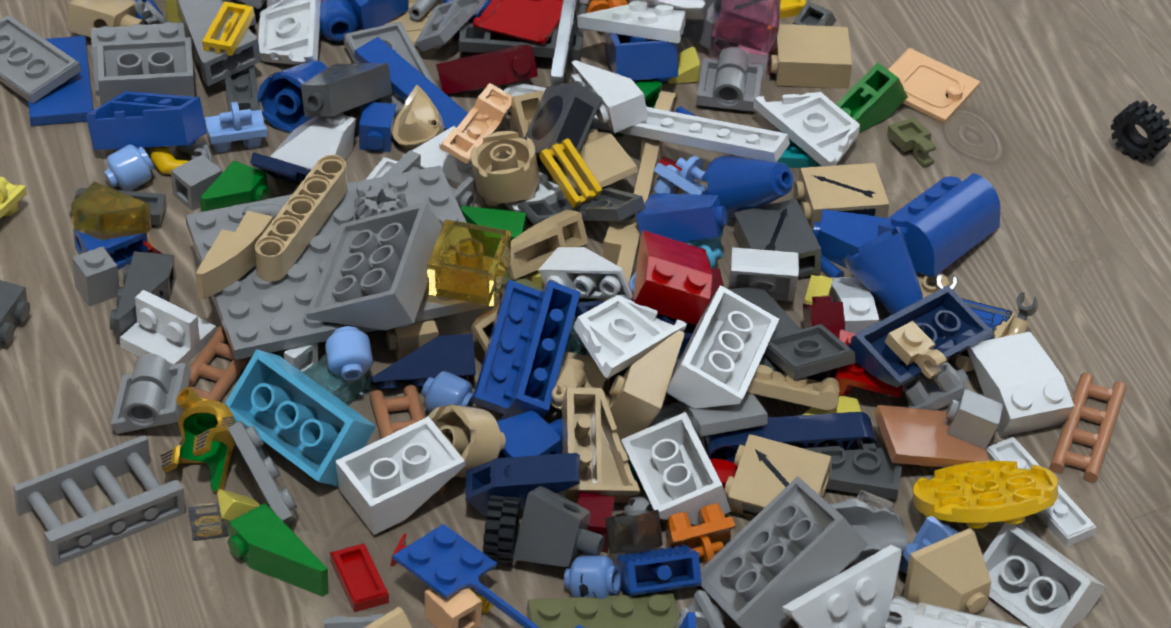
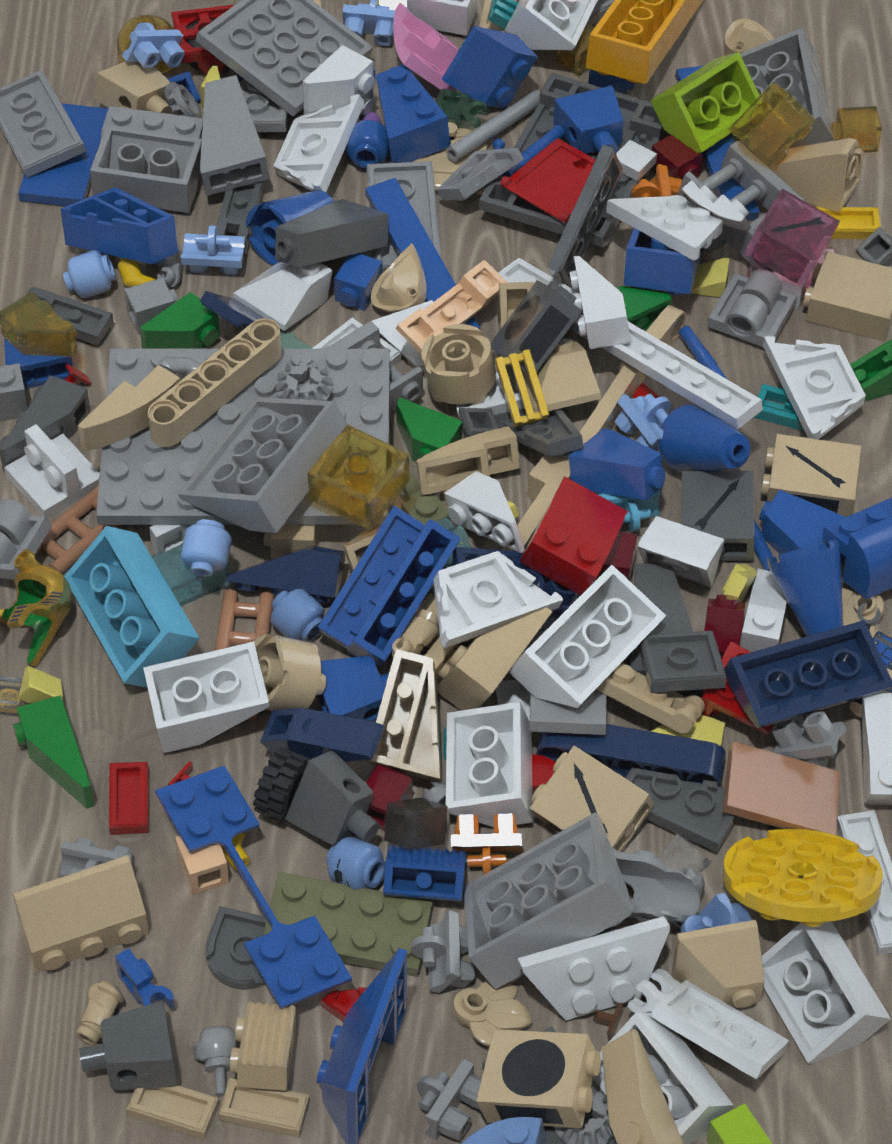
camera: 20 degrees right, 10 degrees up
(234, 28) = (243, 141): yellow tile -> none
(264, 471) = (70, 654): light grey wing -> none
(492, 67) = (497, 239): dark red slope -> none
(915, 346) = (791, 686): tan plate -> none
(973, 418) = (832, 781): light grey brick -> none

